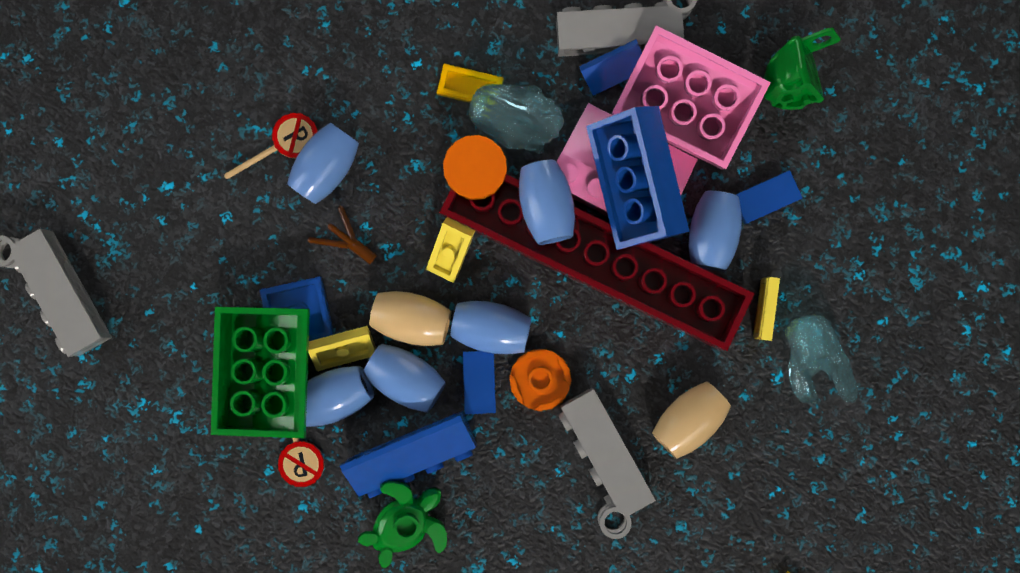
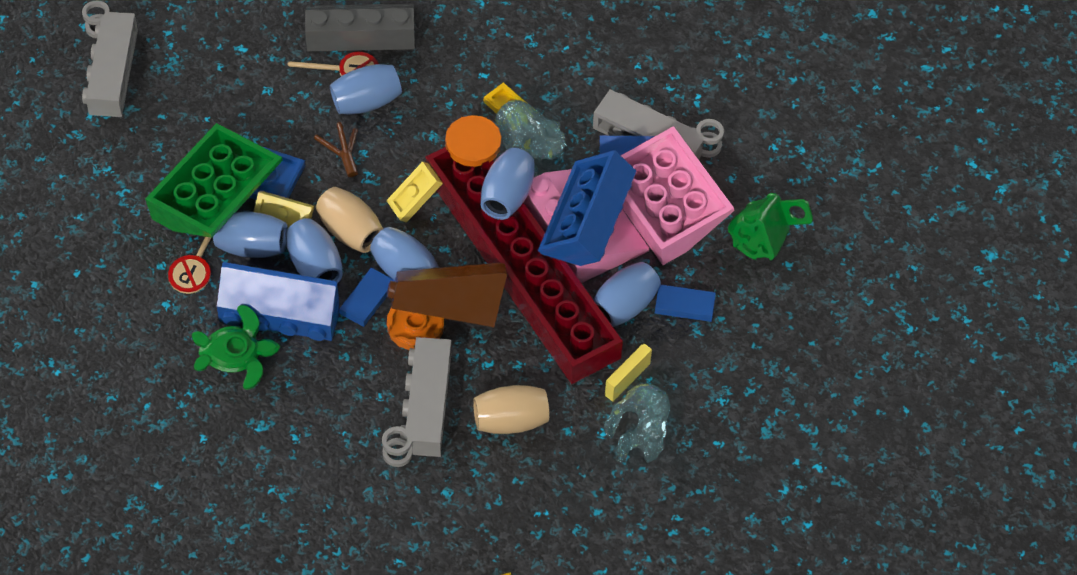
camera: 30 degrees right, 30 degrees down
(261, 87) = (359, 27): none -> dark grey slope
(563, 343) = (451, 293): none -> reddish brown slope

